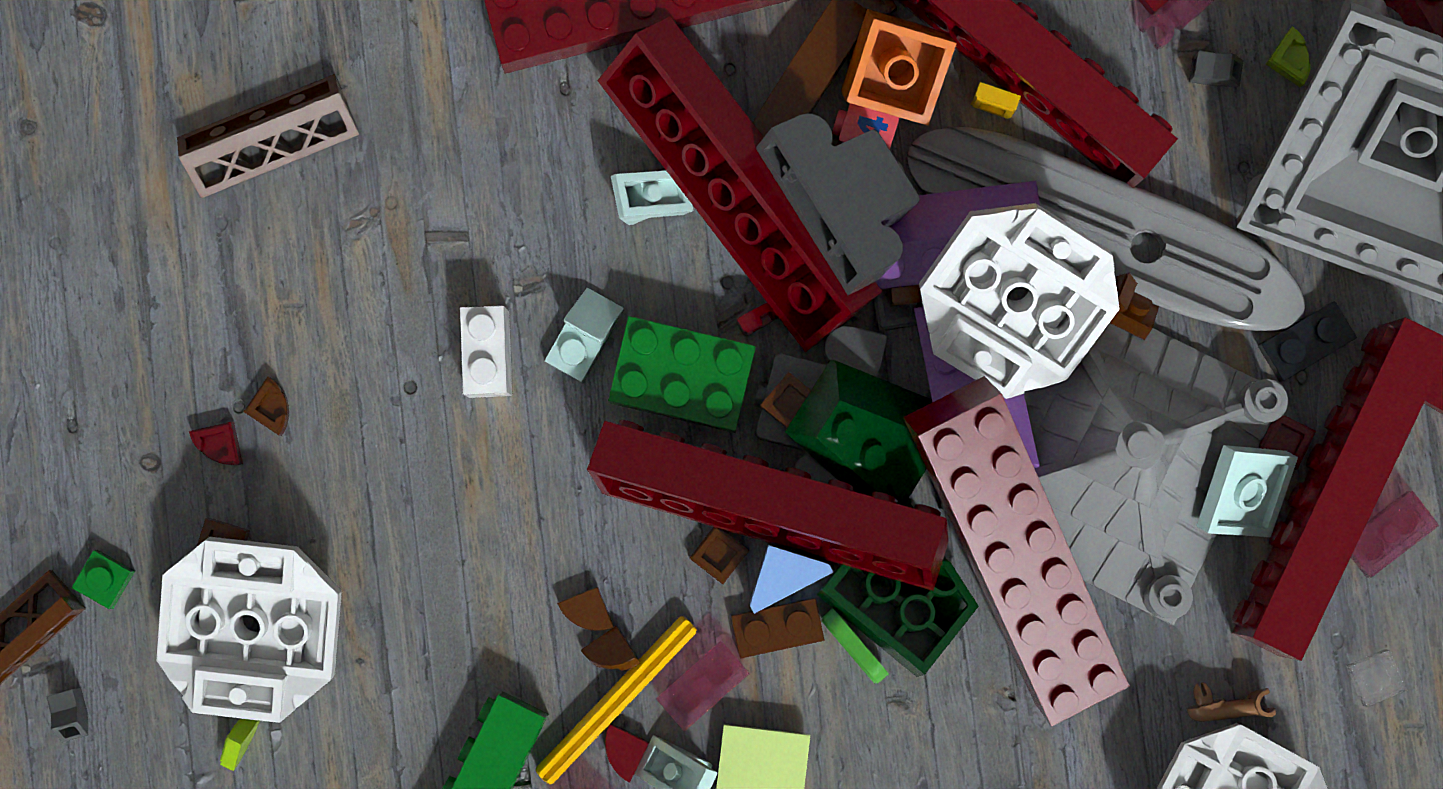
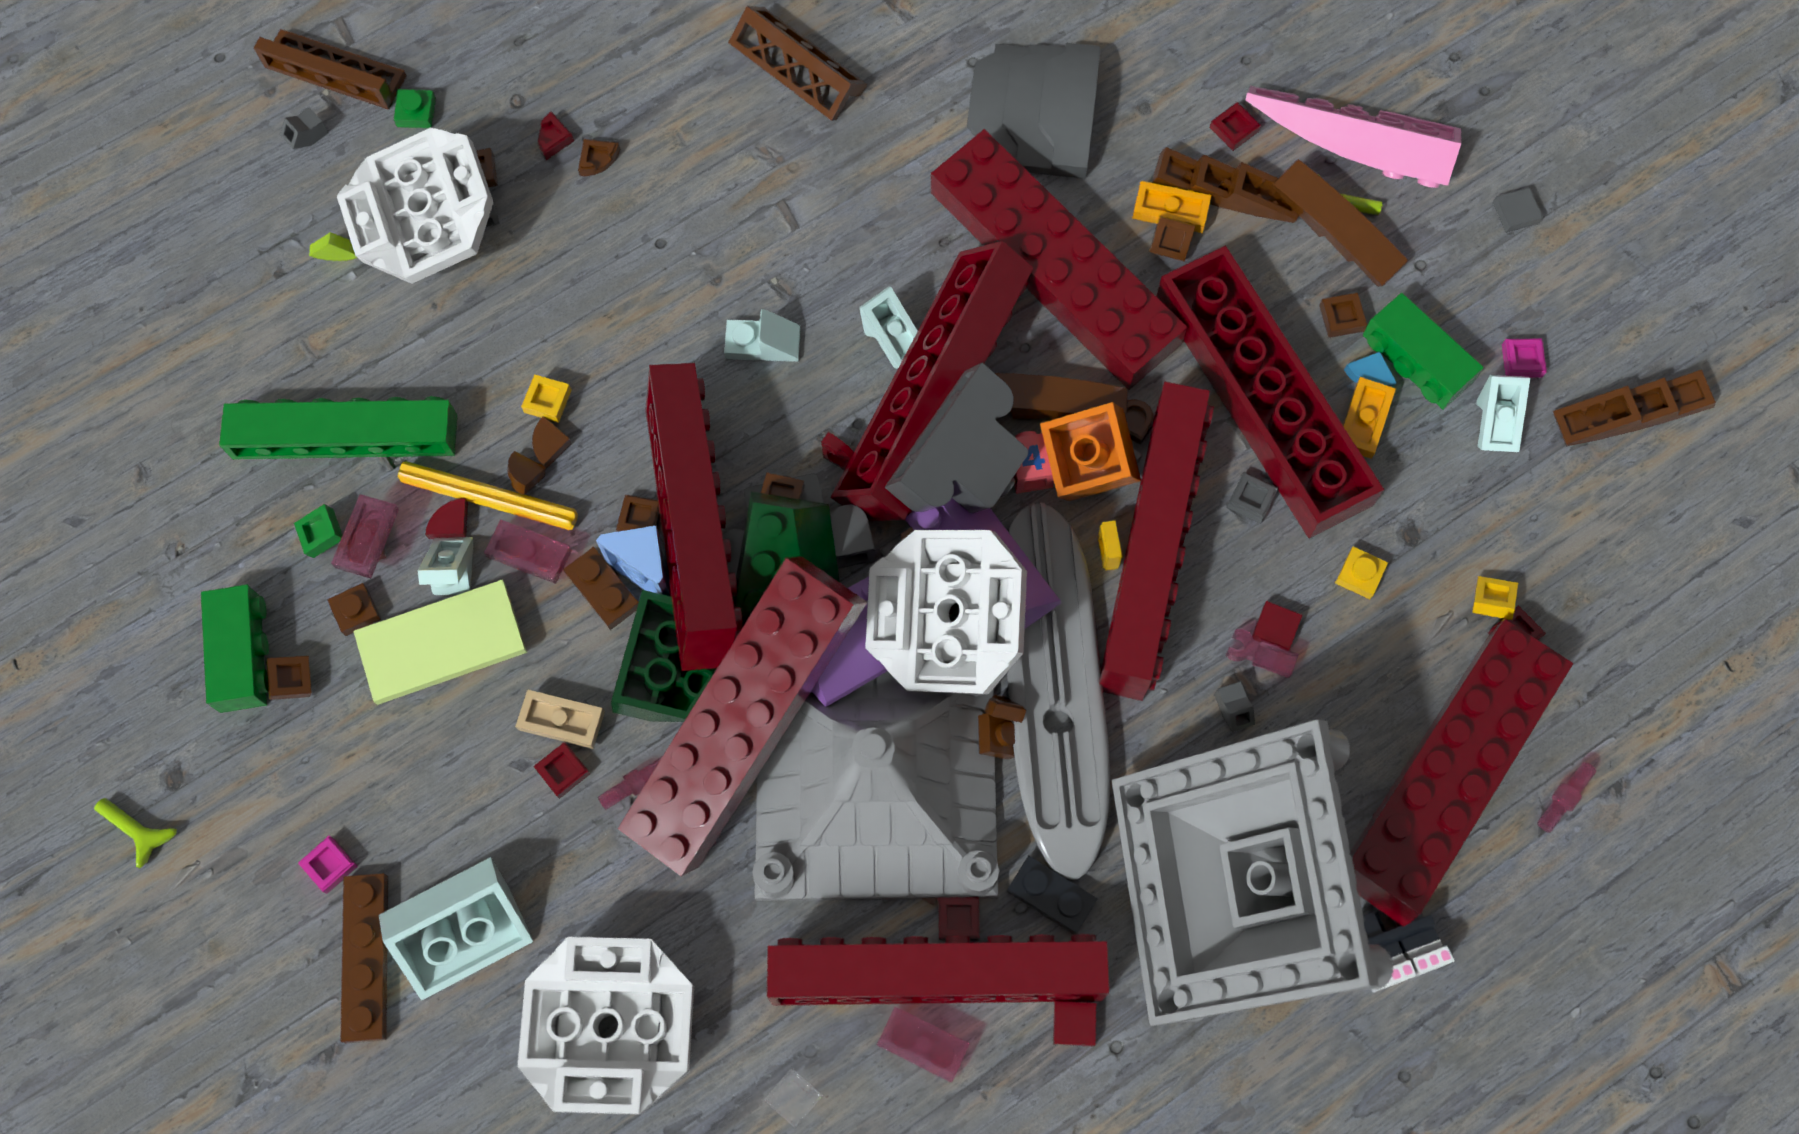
camera: 60 degrees right, 15 degrees down
(485, 351) = (711, 274): white brick -> none
(538, 590) = (546, 398): none -> yellow plate
(681, 374) = (765, 418): green brick -> none
(854, 646) = (612, 650): bright green tile -> none
(899, 732) = (560, 719): none -> tan plate
(949, 753) = (562, 770): none -> dark red tile
(999, 686) = (632, 784): none -> clear pink bar
(1219, 709) = (696, 963): medium nougat piece -> none
(1246, 491) = (894, 894): light aqua plate -> none

